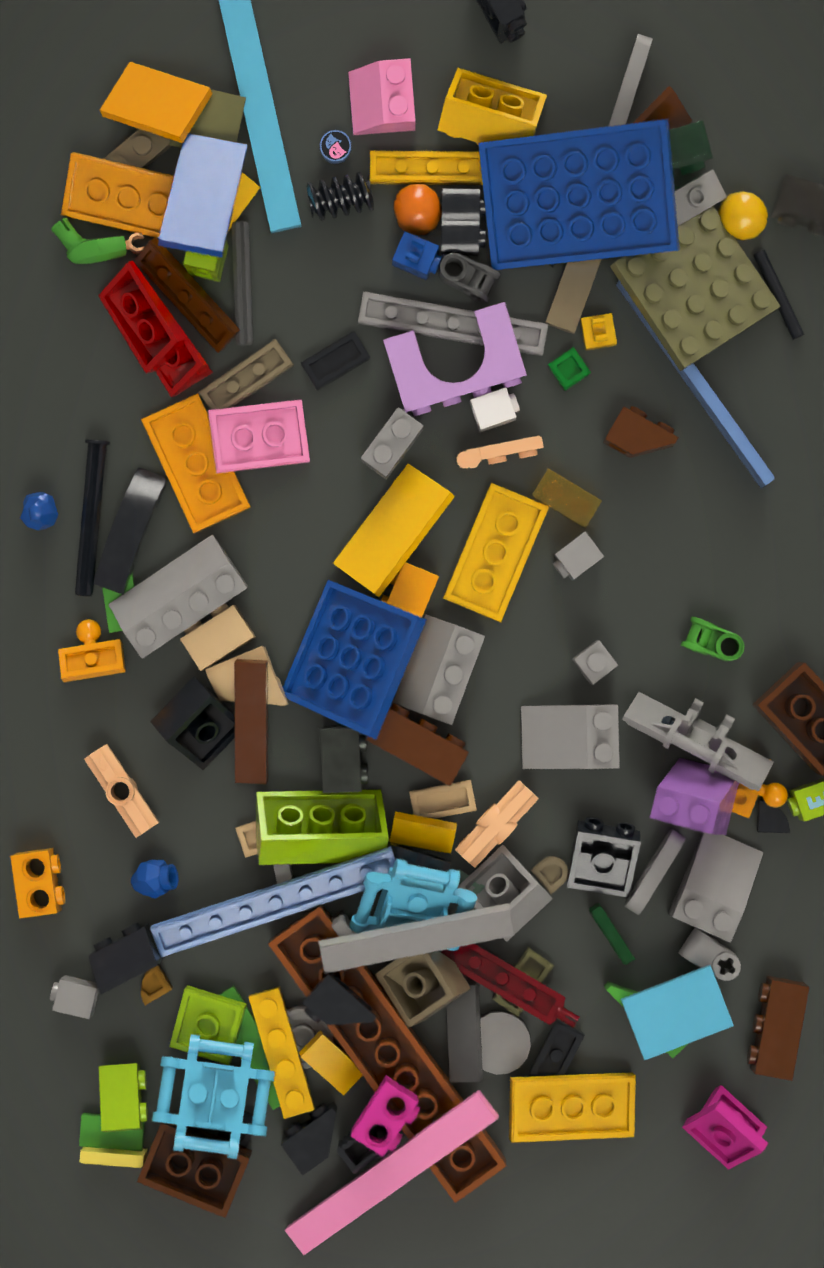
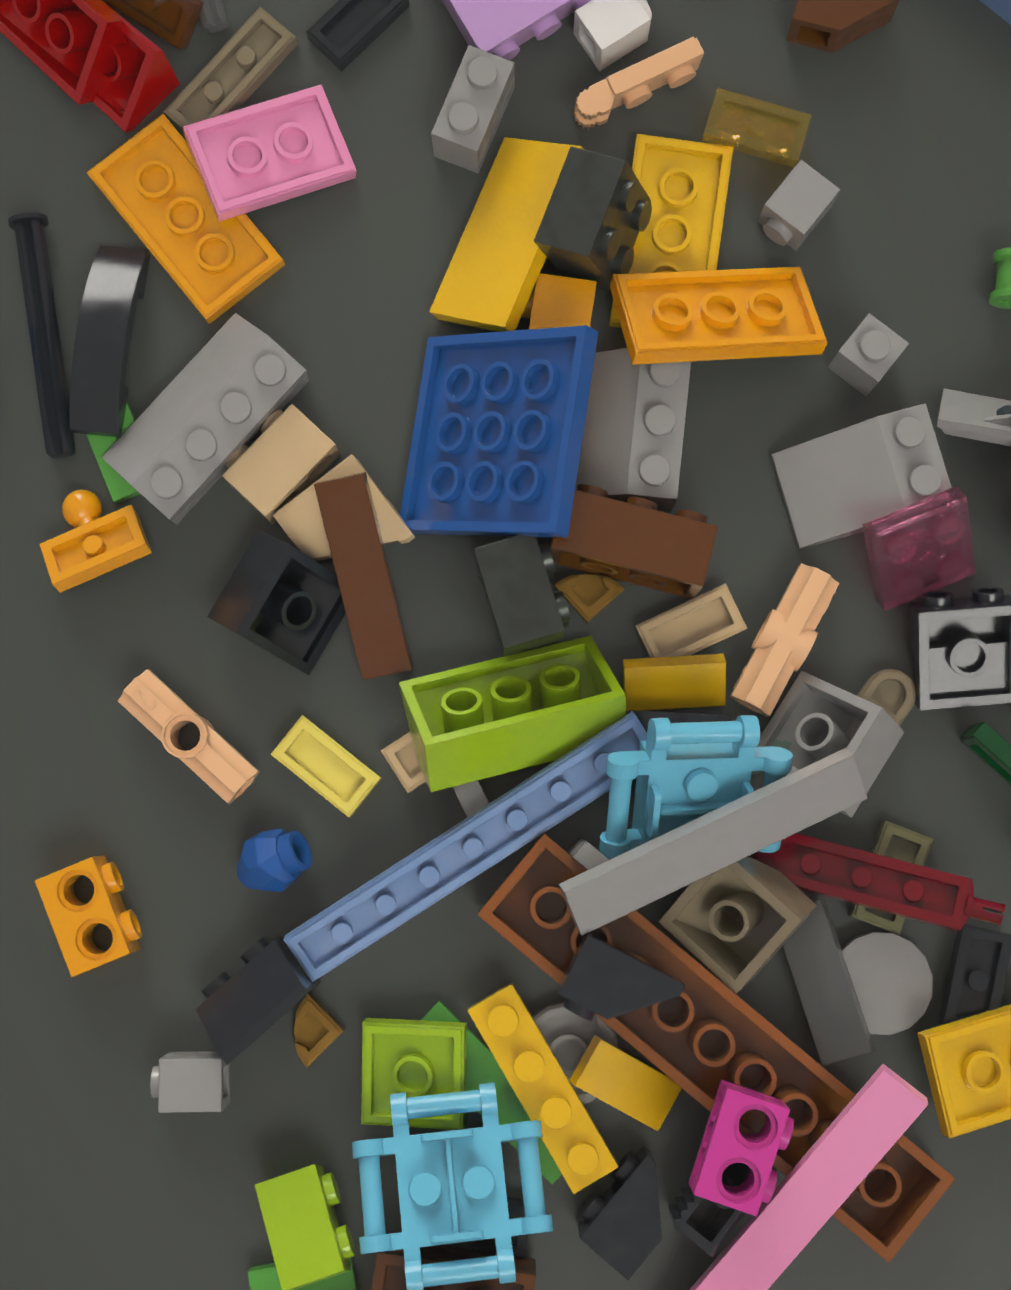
camera: 10 degrees left, 5 degrees down
(200, 828) = (326, 766): none -> light yellow tile
(386, 764) = (589, 593): none -> pearl gold tile
(446, 540) = (594, 217): none -> pearl dark grey brick
(507, 616) = (717, 315): none -> light orange tile
(591, 791) = (920, 548): none -> clear pink plate

